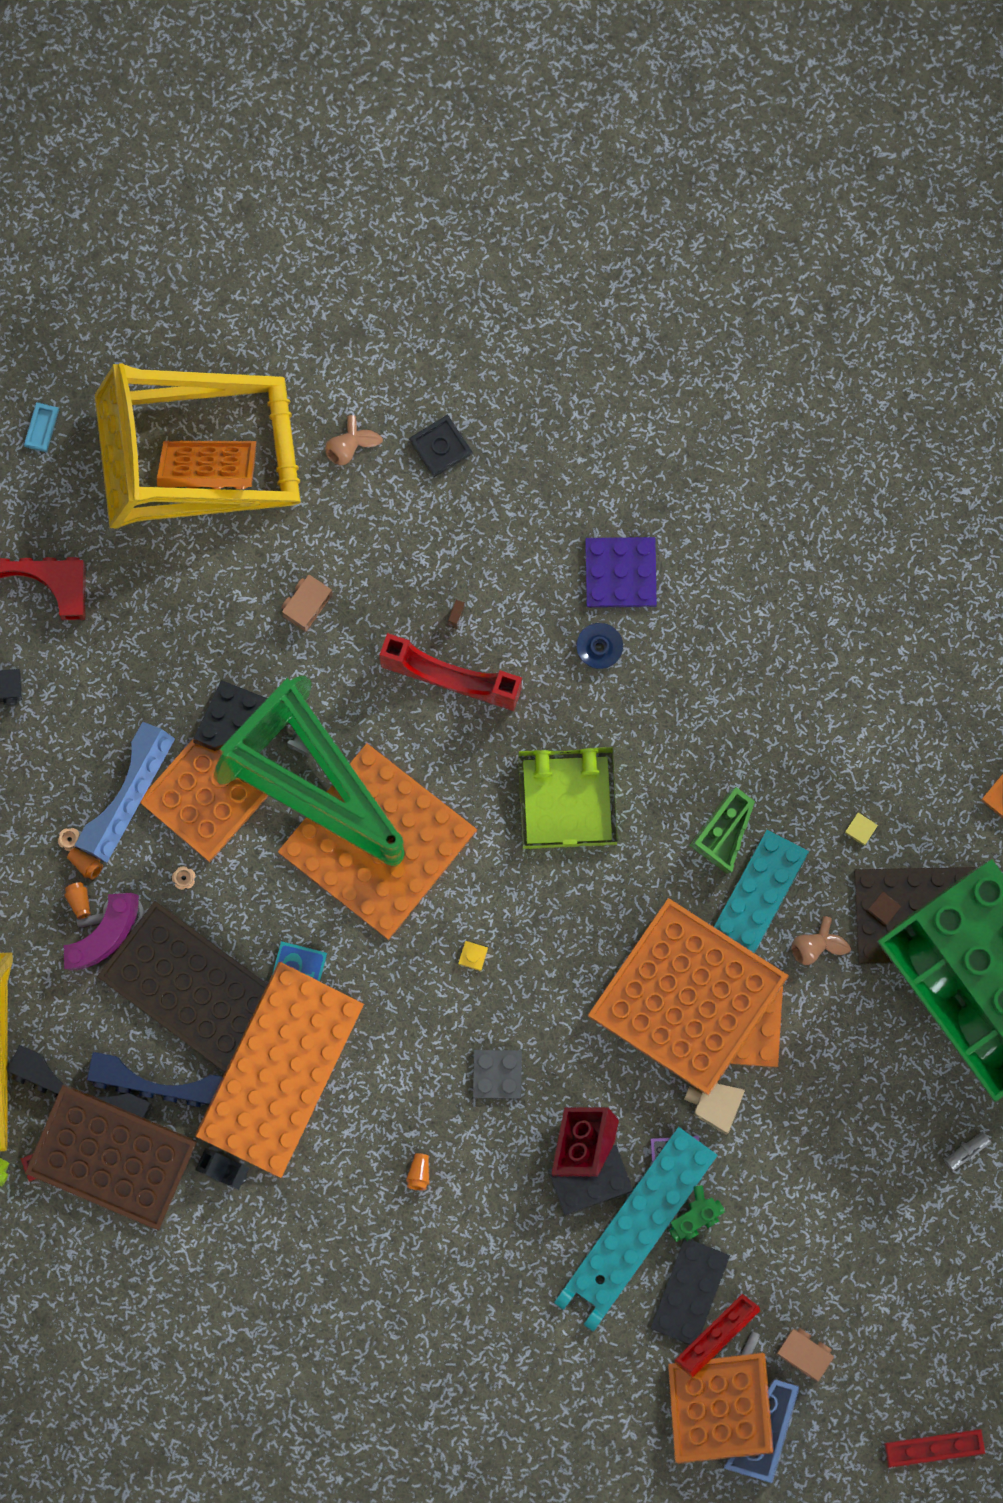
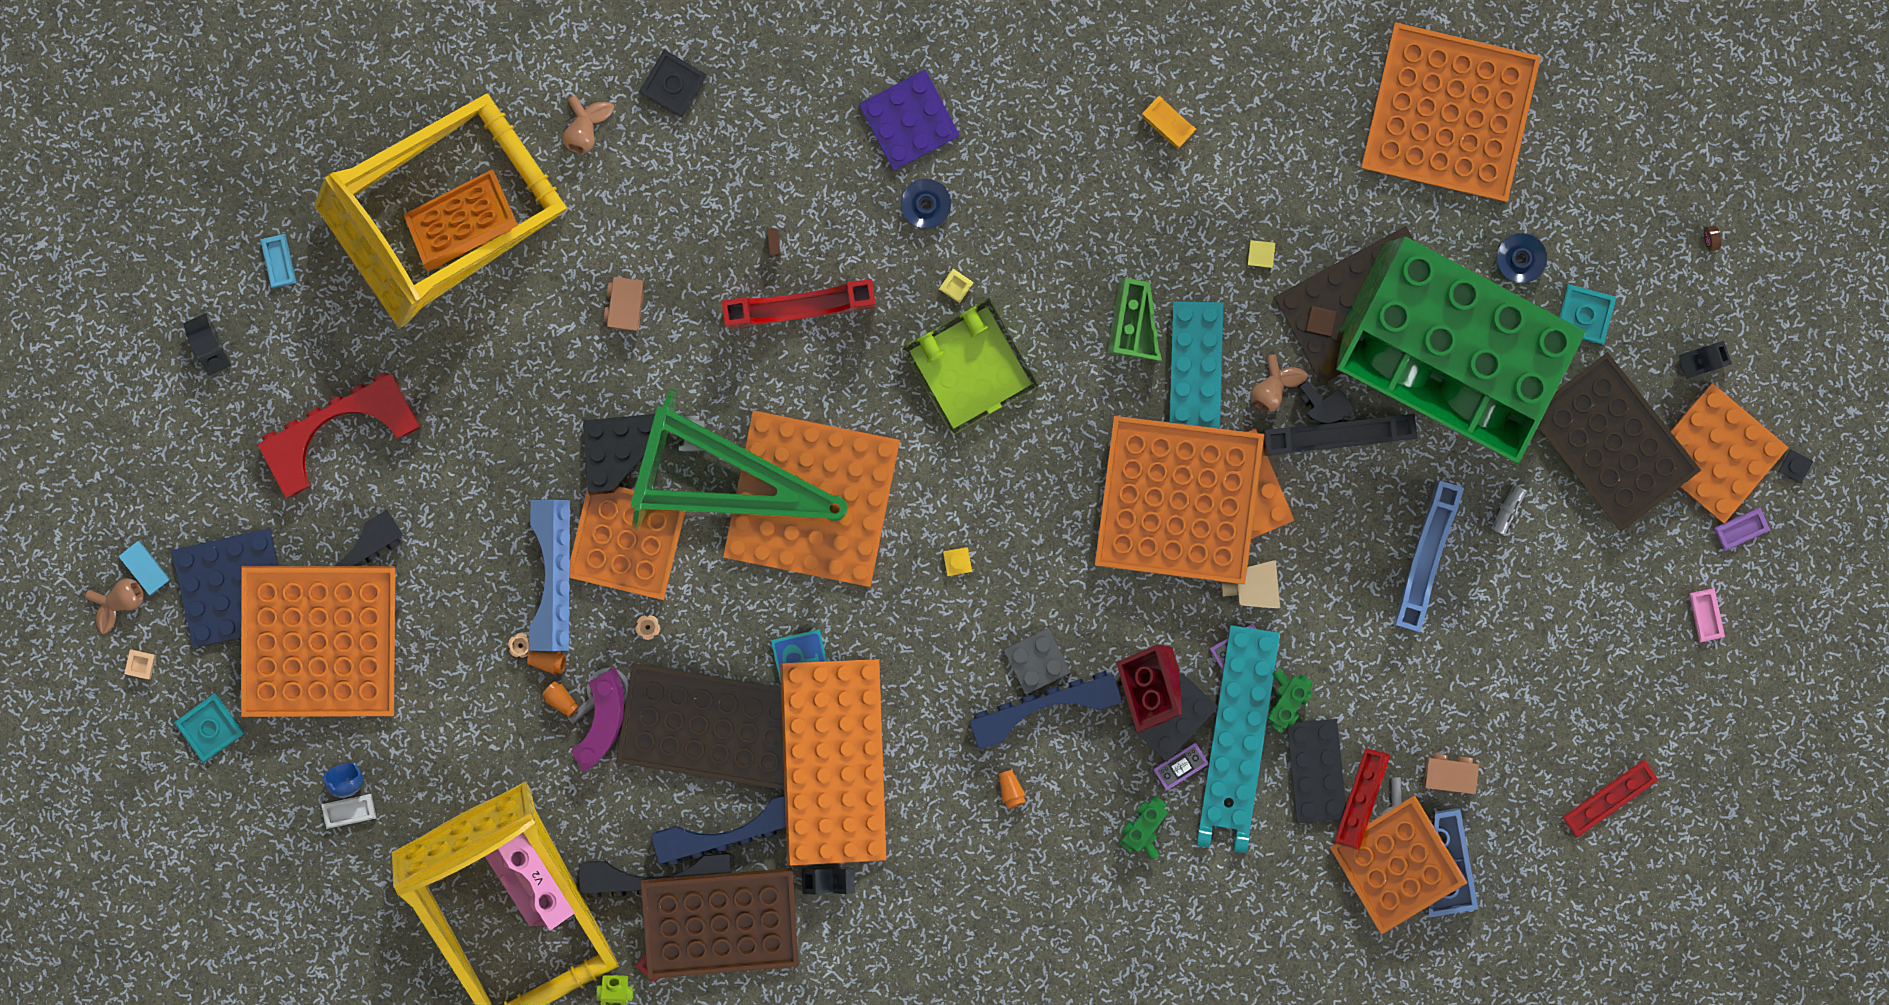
camera: 30 degrees left, 10 degrees up
(432, 1111) = (1096, 693): none -> dark blue arch
(511, 1266) = (1141, 832): none -> green brick
(574, 1227) = (1180, 766): none -> tile
(590, 726) = (956, 285): none -> light yellow tile
(836, 681) = (1168, 122): none -> light orange hinge
(852, 986) = (1326, 410): none -> black brick
(852, 1013) = (1340, 434): none -> black arch
(878, 1154) = (1427, 555): none -> medium blue arch

